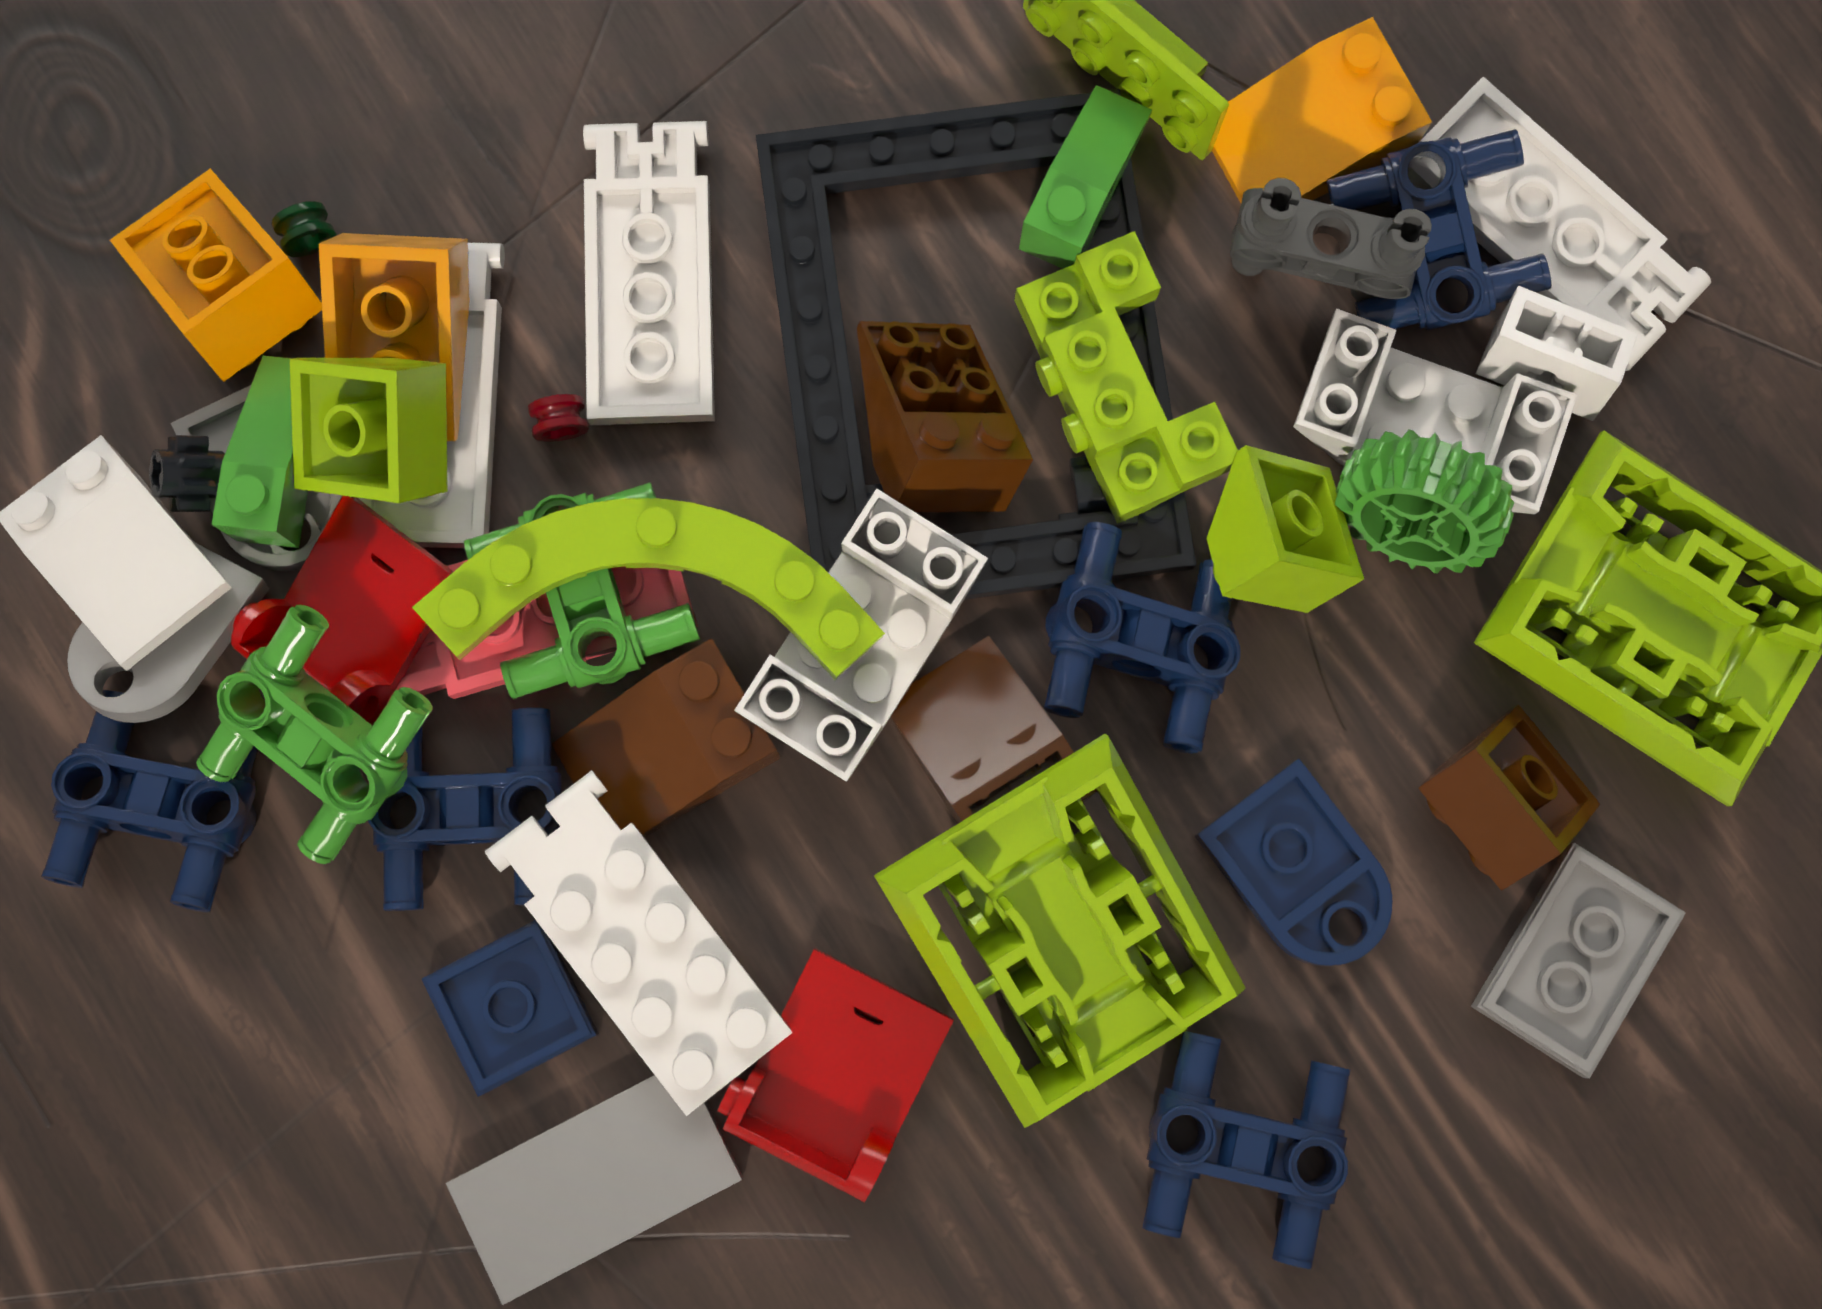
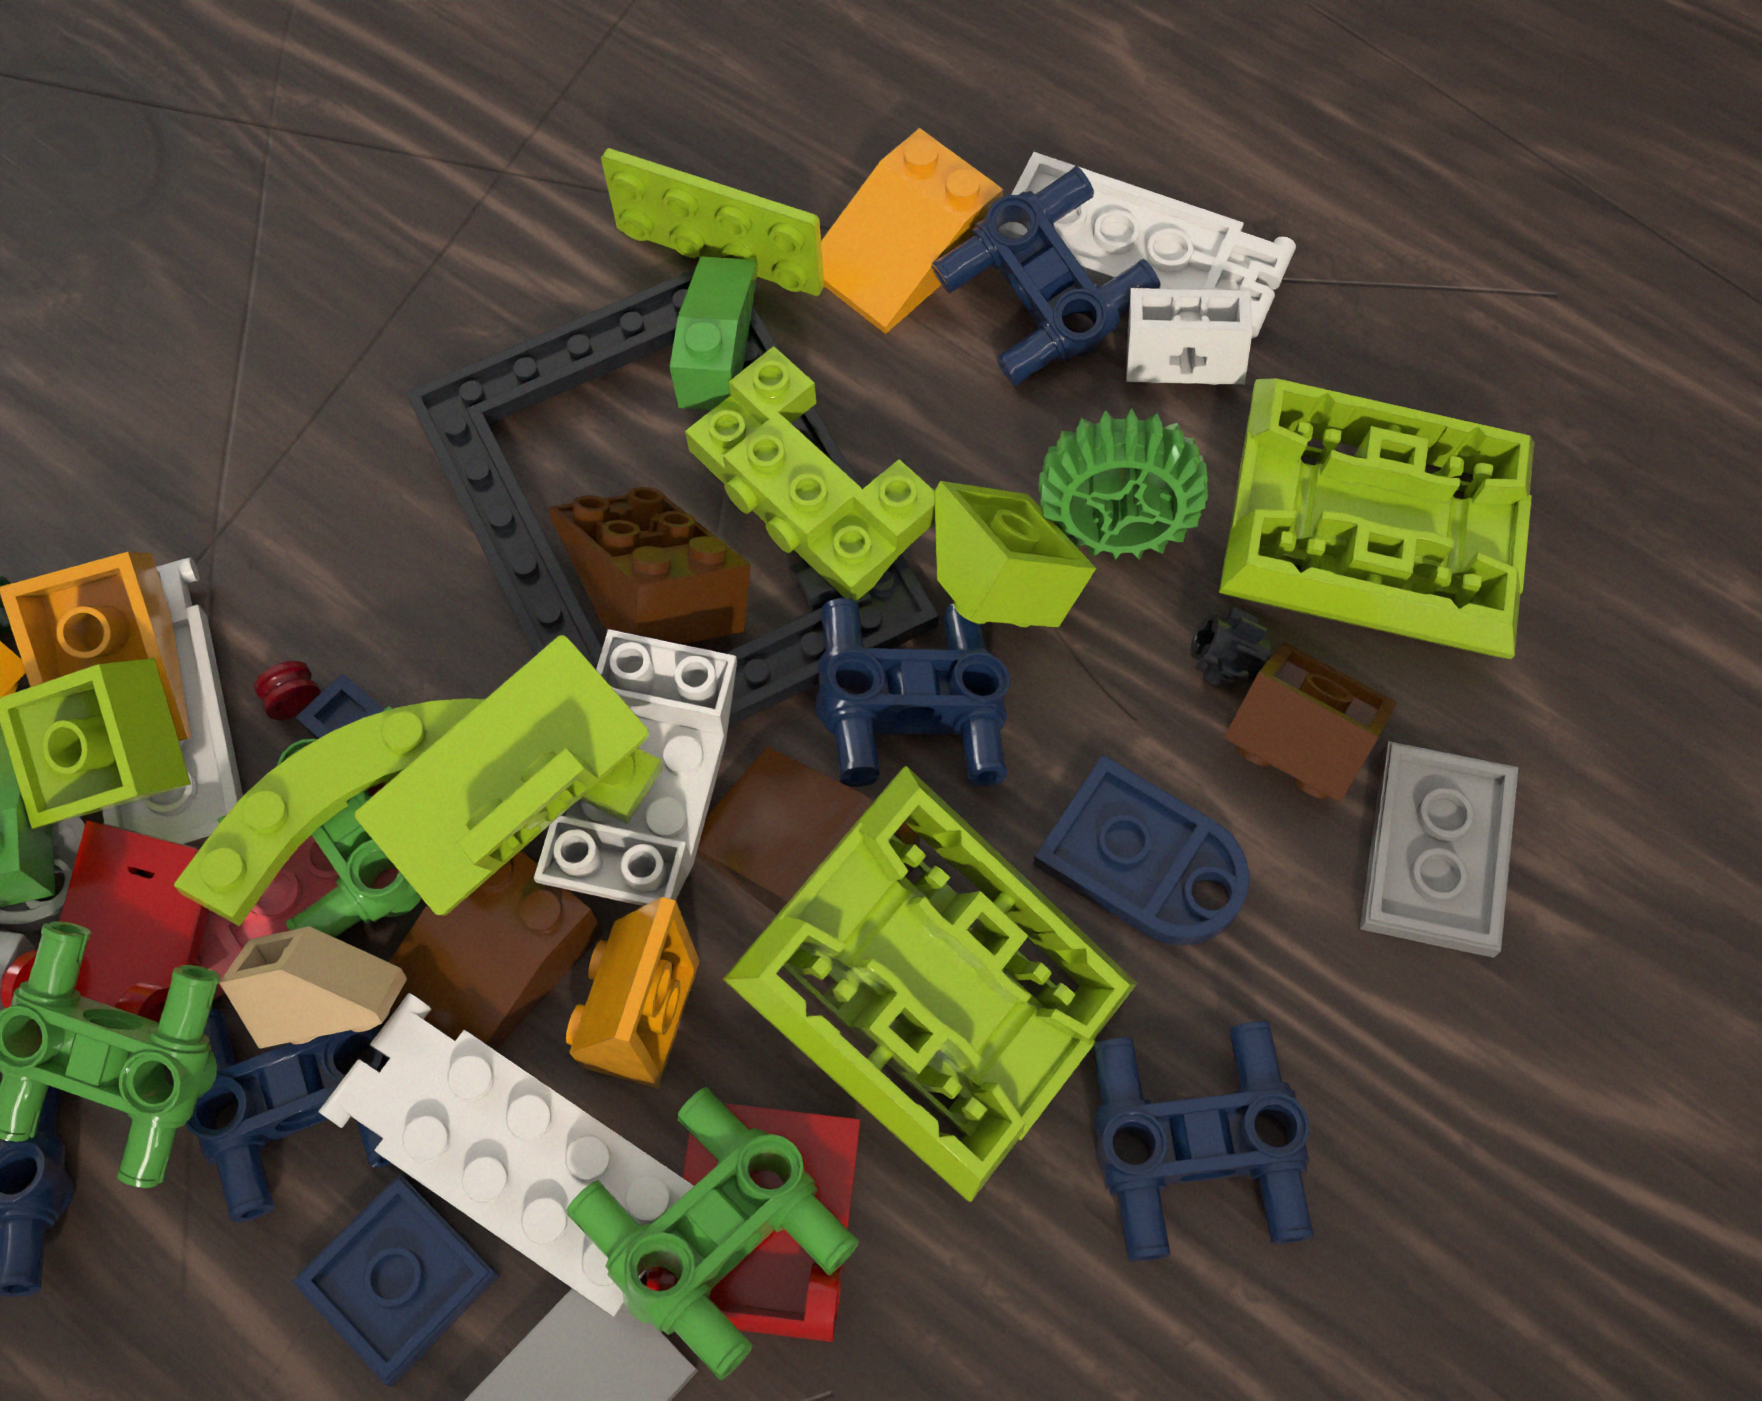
camera: 15 degrees left, 15 degrees down
(507, 737) = (309, 987): none -> tan slope
(603, 463) = (337, 707): none -> dark blue plate
(648, 276) = (341, 545): white hinge -> none
(736, 604) = (501, 775): none -> lime bracket
(788, 841) = (636, 995): none -> light orange slope
(794, 1080) = (712, 1231): none -> bright green piece
(1370, 388) = (1027, 417): white slope -> none
(1375, 254) = (907, 311): dark grey piece -> none
(1462, 700) = (1230, 648): none -> black gear

